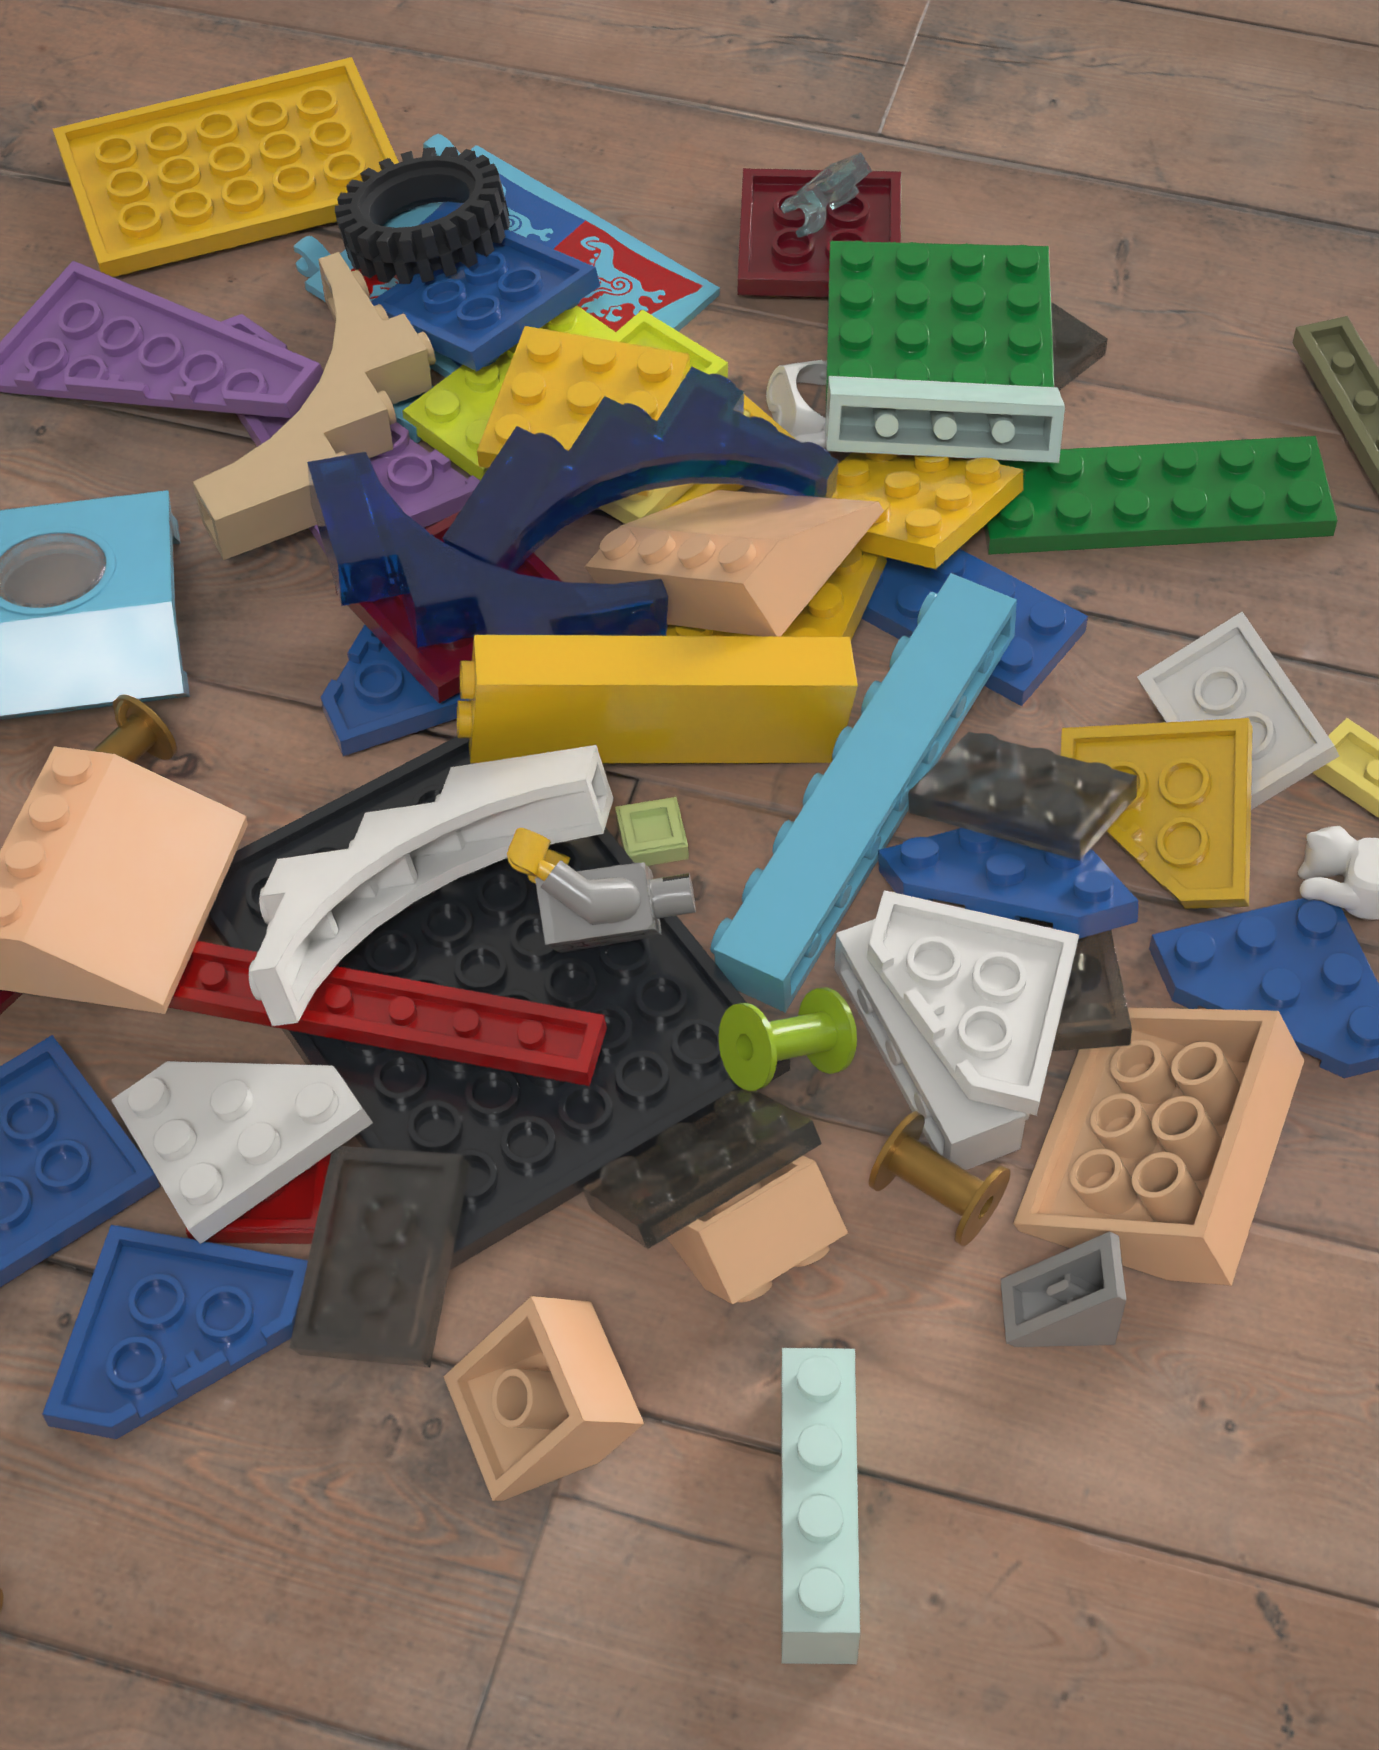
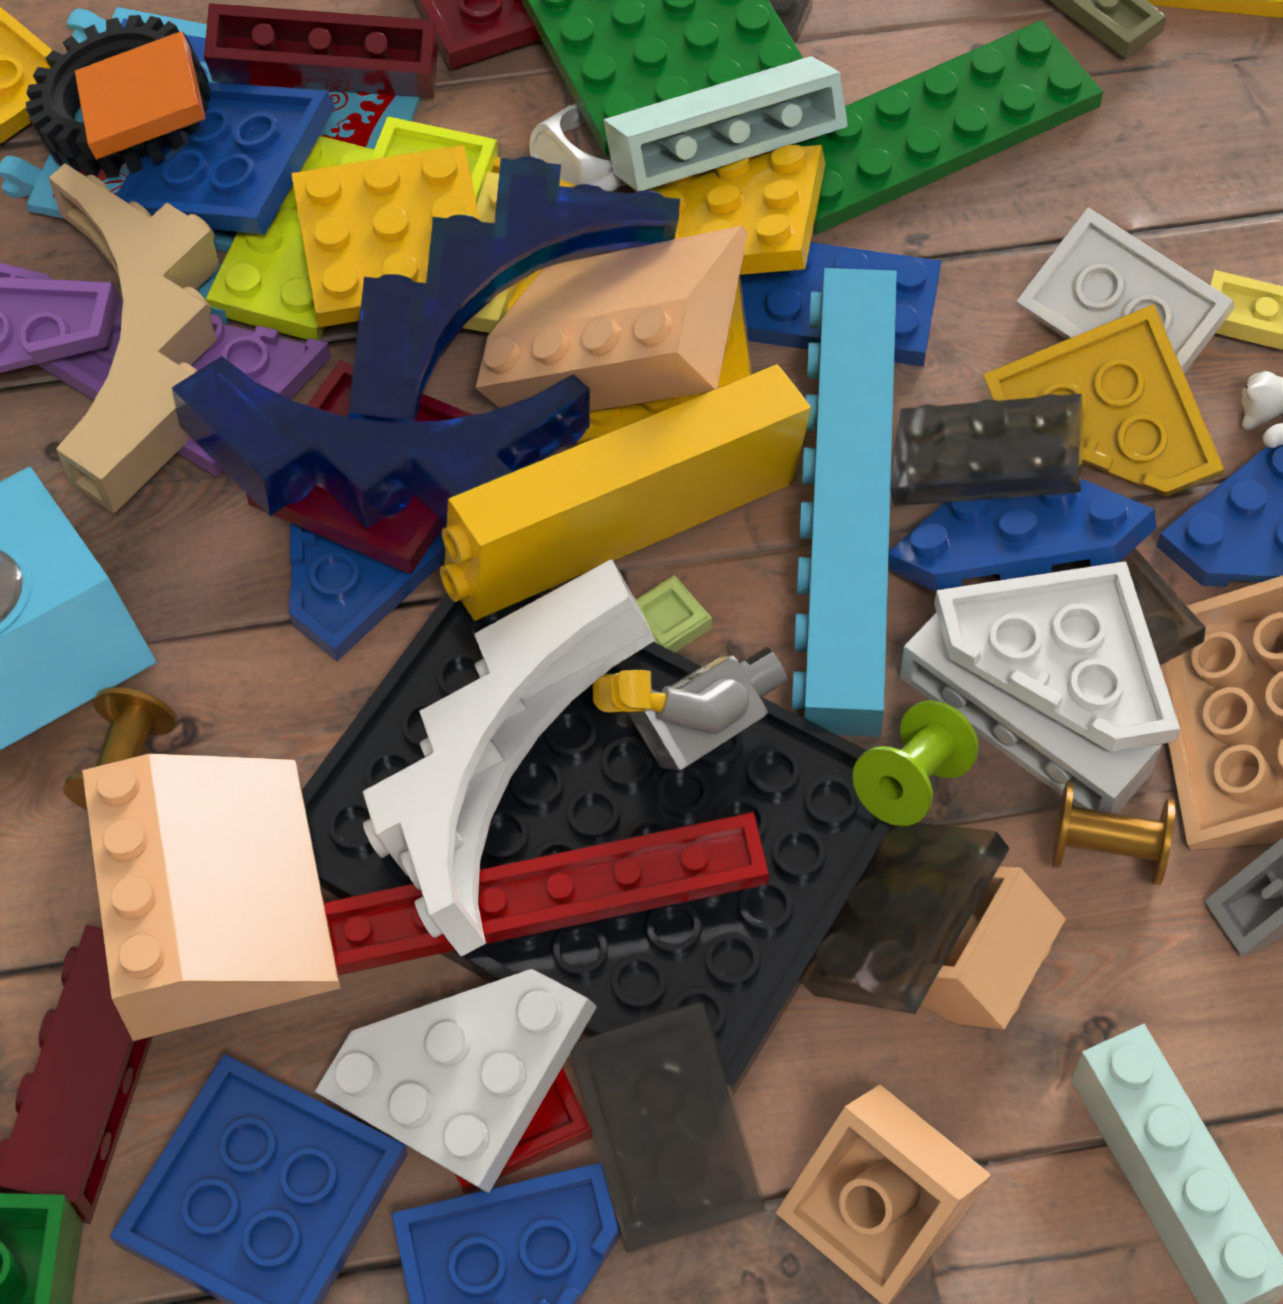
camera: 25 degrees left, 5 degrees up
(427, 214) = (139, 95): none -> orange tile
(621, 236) = (321, 50): none -> dark red brick

